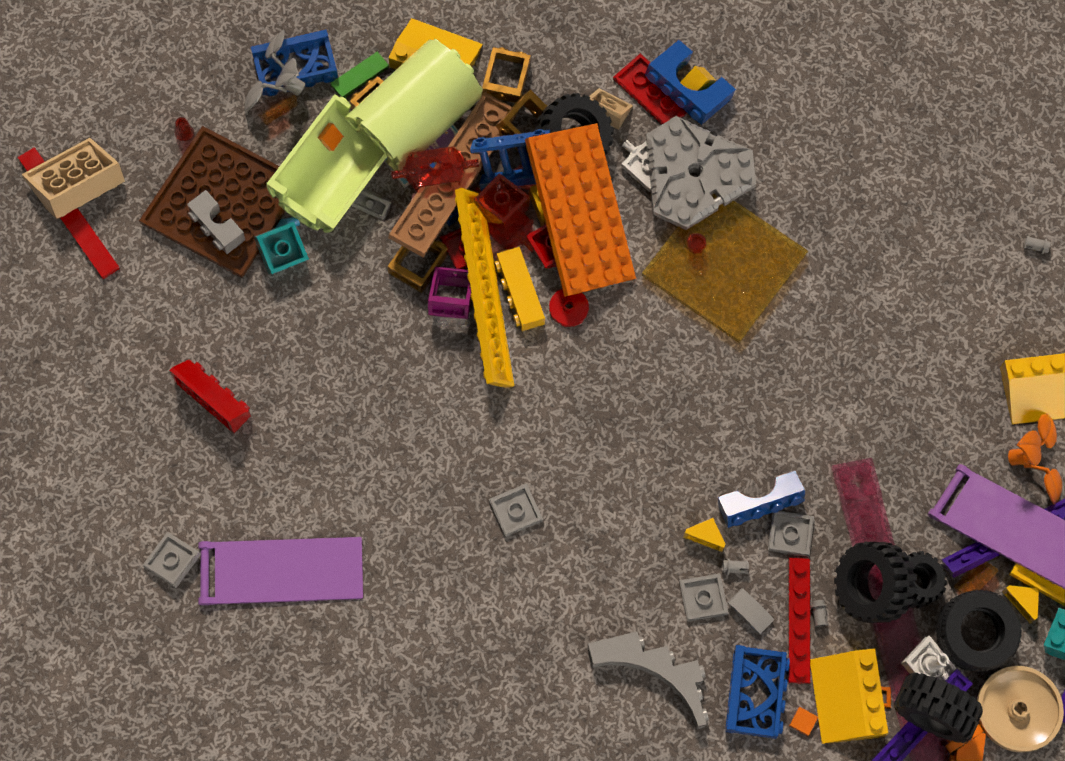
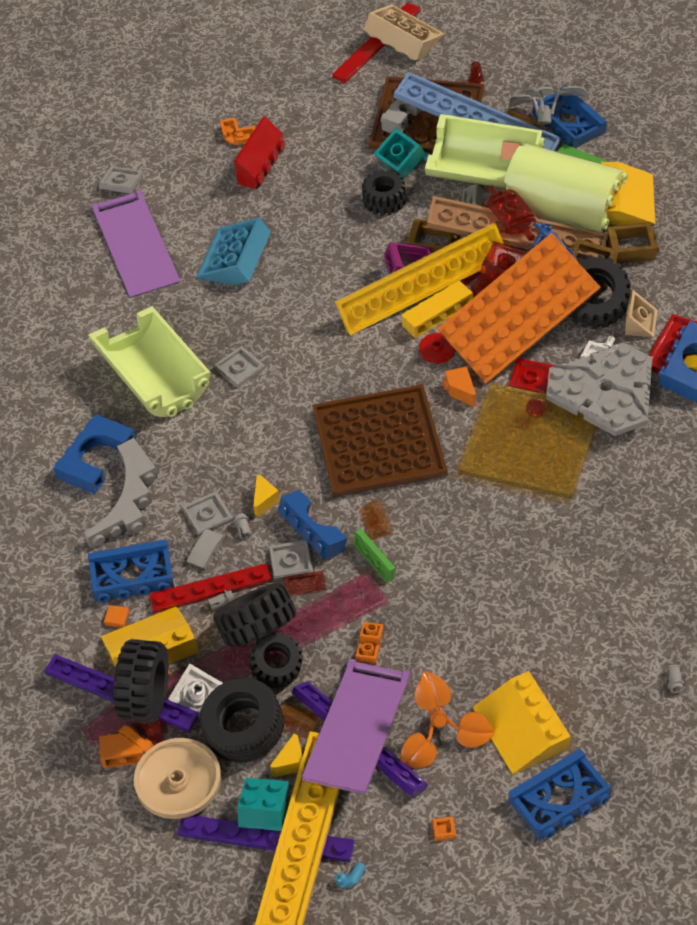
camera: 80 degrees right, 20 degrees down
(156, 412) = (234, 134): none -> orange plate
(254, 157) = (440, 100): none -> medium blue plate
(334, 298) = (383, 192): none -> black tyre
(347, 468) = (235, 252): none -> dark azure slope
(491, 595) = (154, 364): none -> yellowish green cylinder
(595, 719) = (96, 433): none -> blue arch
(633, 302) = (460, 385): none -> orange slope
(644, 233) = (530, 376): none -> red tile
(671, 403) = (379, 440): none -> reddish brown plate
(769, 438) = (376, 519): none -> clear orange slope
(817, 453) = (374, 556): none -> bright green tile
(823, 528) = (305, 582): none -> clear red tile
(912, 490) = (369, 643): none -> orange slope

